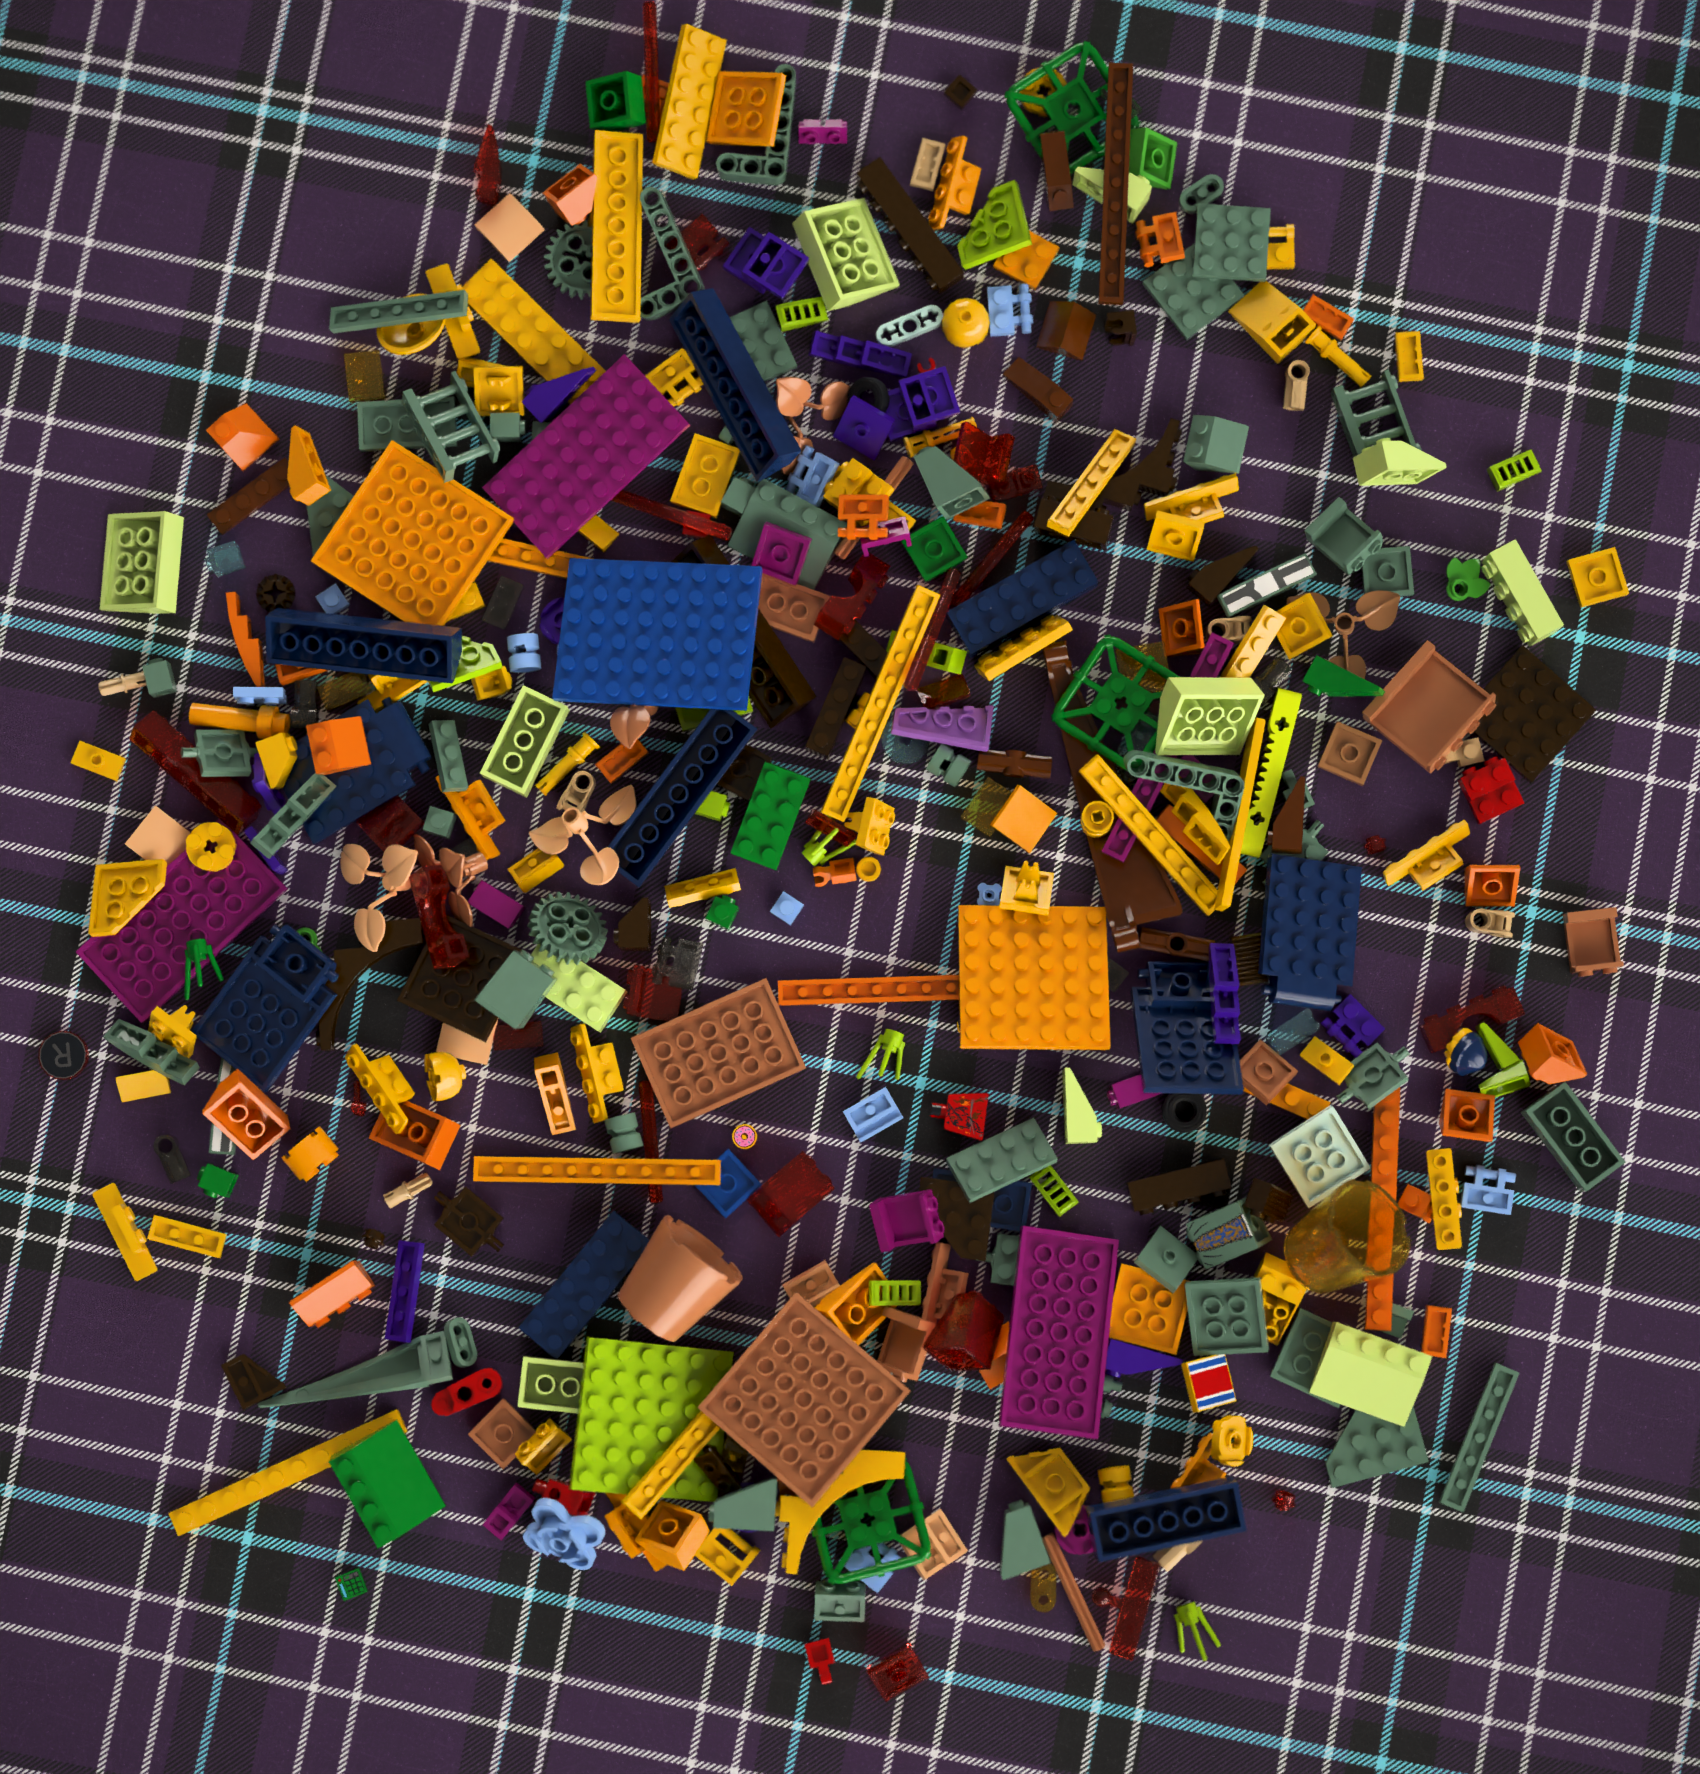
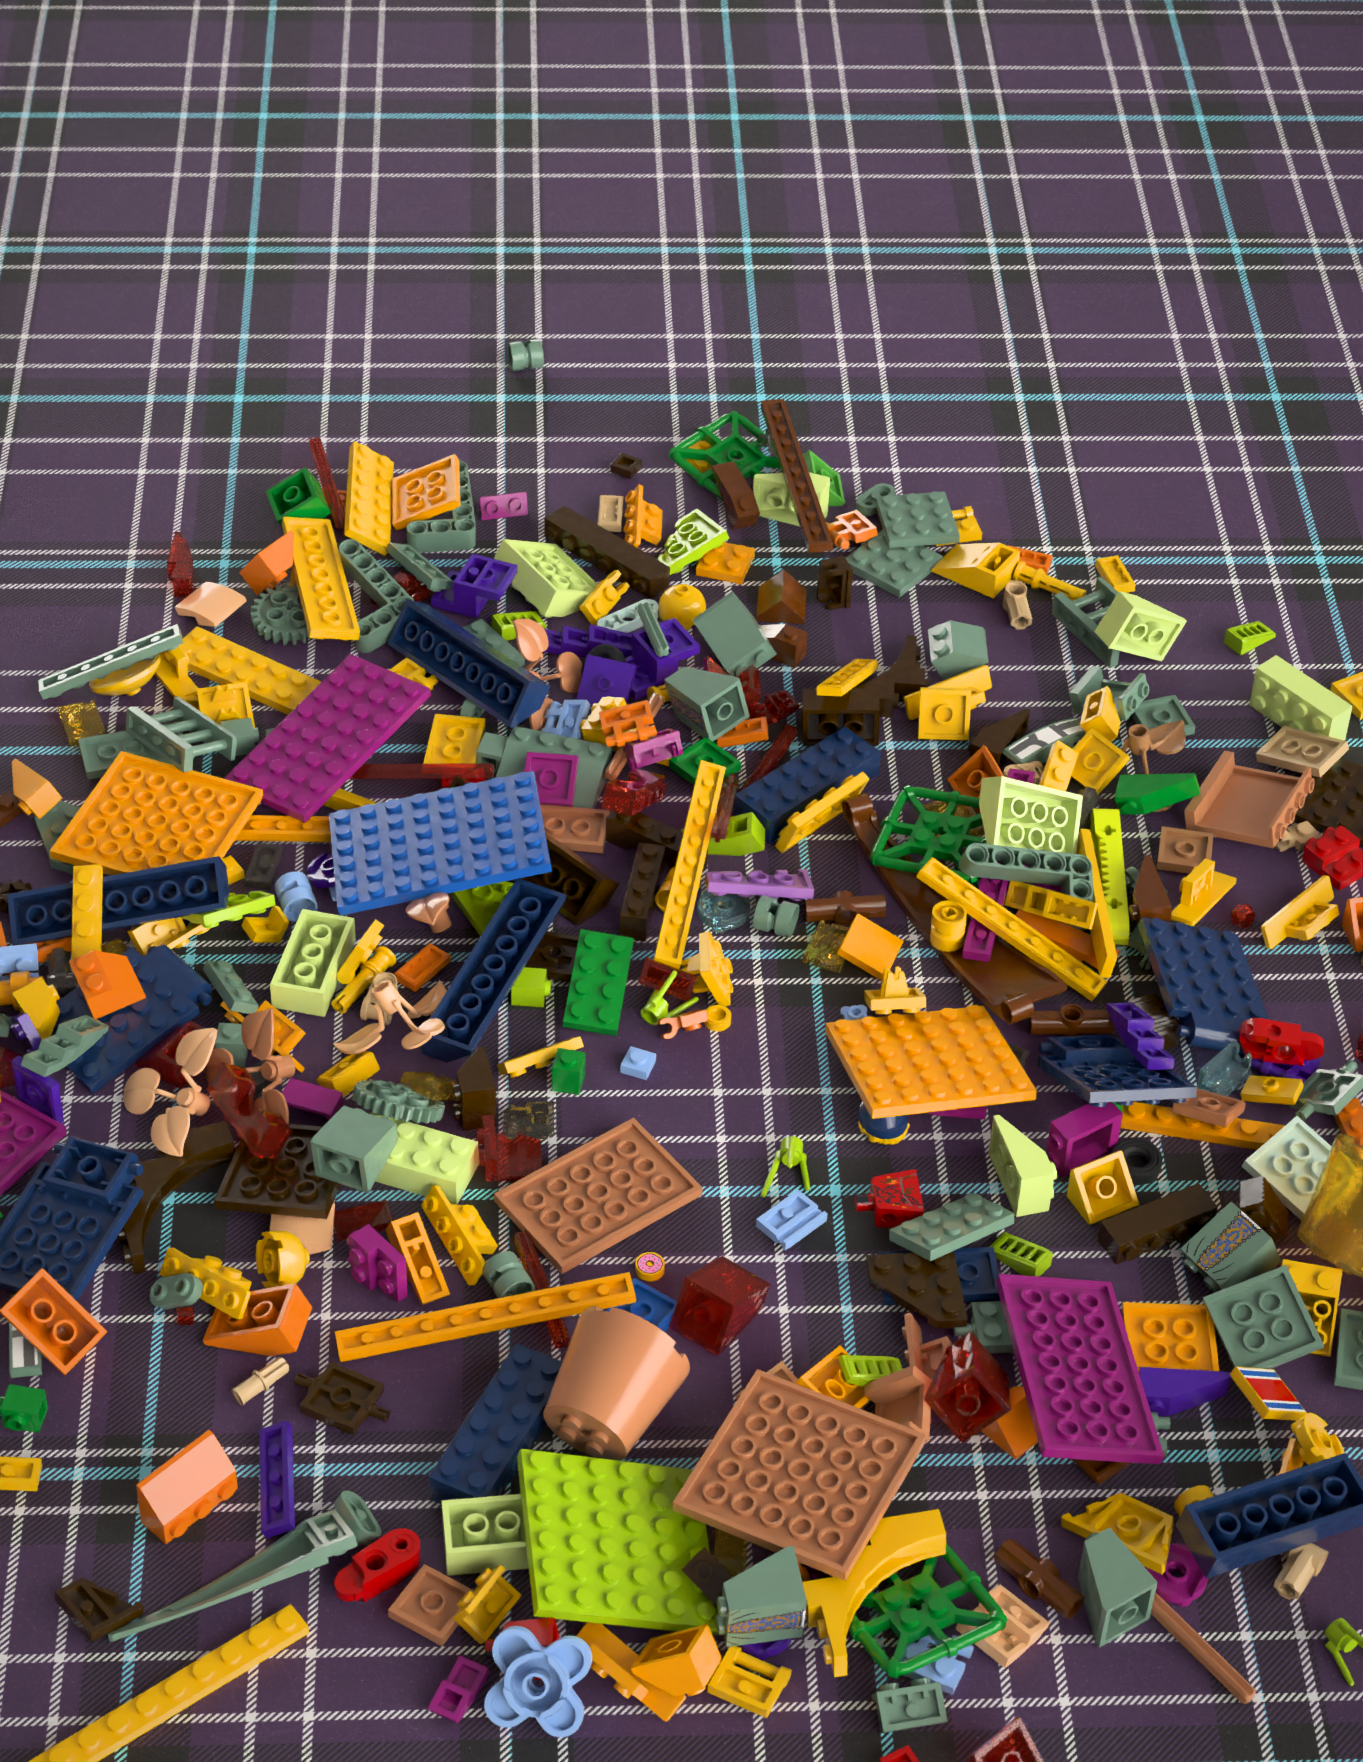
camera: 20 degrees left, 40 degrees down
(310, 1153) = (136, 1356): light orange brick -> none
(331, 661) = (86, 909): none -> yellow plate
(352, 1090) = (176, 1291): none -> sand green plate
(373, 1238) = (228, 1433): dark brown plate -> none
(386, 1483) = (292, 1680): green slope -> none
(513, 1095) = (377, 1263): none -> magenta plate
(550, 397) = (286, 695): dark purple slope -> none
(564, 750) = (360, 953): none -> yellow plate
(601, 910) = (431, 1087): none -> clear yellow plate
(670, 1465) = (657, 1575): yellow tile -> none
(719, 219) = (420, 567): none -> sand green plate
(868, 990) = (754, 1112): orange plate -> none
(892, 294) = (603, 598): none -> yellow hinge
(906, 1219) = (865, 1296): magenta panel -> none
(918, 384) = (653, 629): none -> sand green axle
(944, 692) = (766, 863): clear red slope -> none
(971, 1512) = (1039, 1578): none -> reddish brown piece
(1001, 310) = (714, 591): light blue plate -> none
(1001, 395) = (734, 635): none -> sand green slope
(1043, 1587) = (1155, 1642): clear yellow plate -> none
(1133, 1606) = (1273, 1636): clear red plate -> none
(1144, 1142) = (1102, 1188): none -> yellow slope
(1166, 1259) = (1172, 1288): sand green plate -> none
(1323, 569) = (1101, 714): none -> yellow slope
(1342, 820) = (1201, 892): none -> yellow bracket
(1347, 1018) = (1279, 1042): none -> red piece
(1466, 576) = (1239, 715): bright green plate -> none
(1502, 652) = (1302, 749): none -> tan plate

